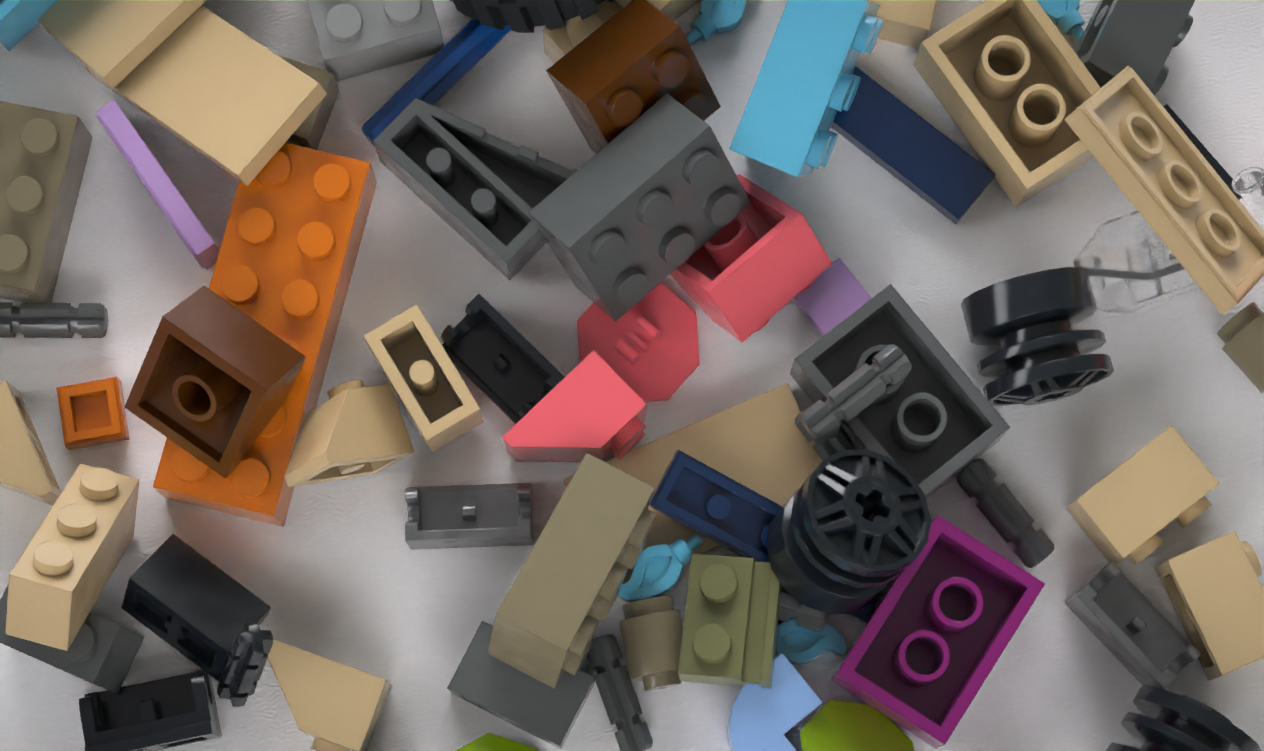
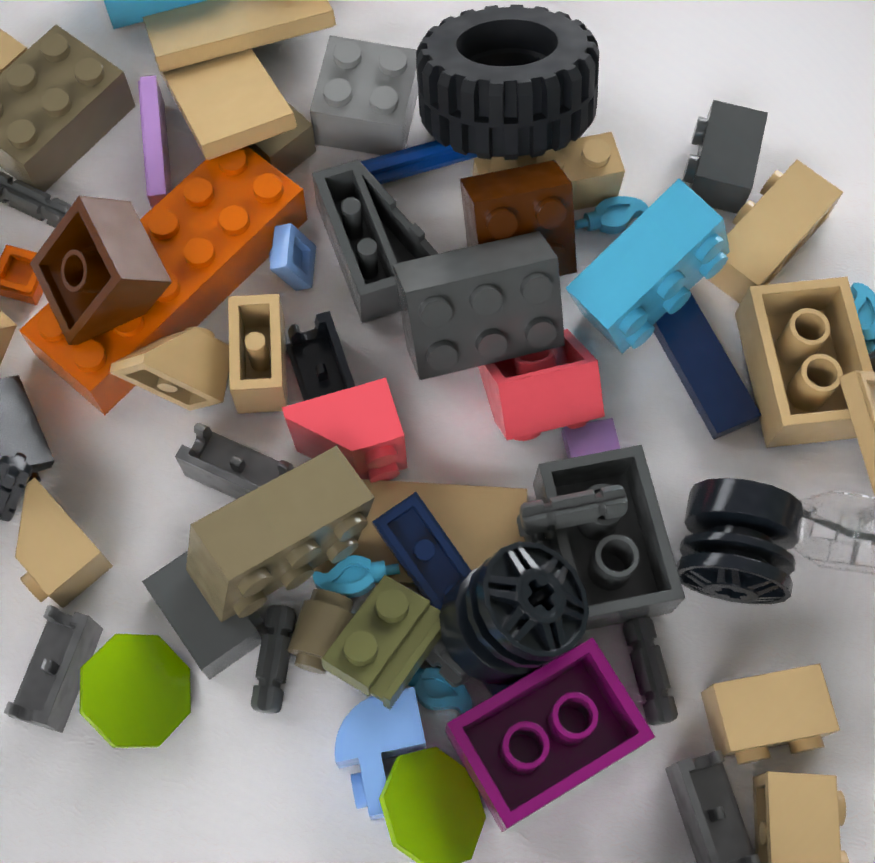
camera: 25 degrees right, 10 degrees down
(393, 243) = (292, 257): none -> light blue plate
(648, 346) = (437, 412): coral piece -> none

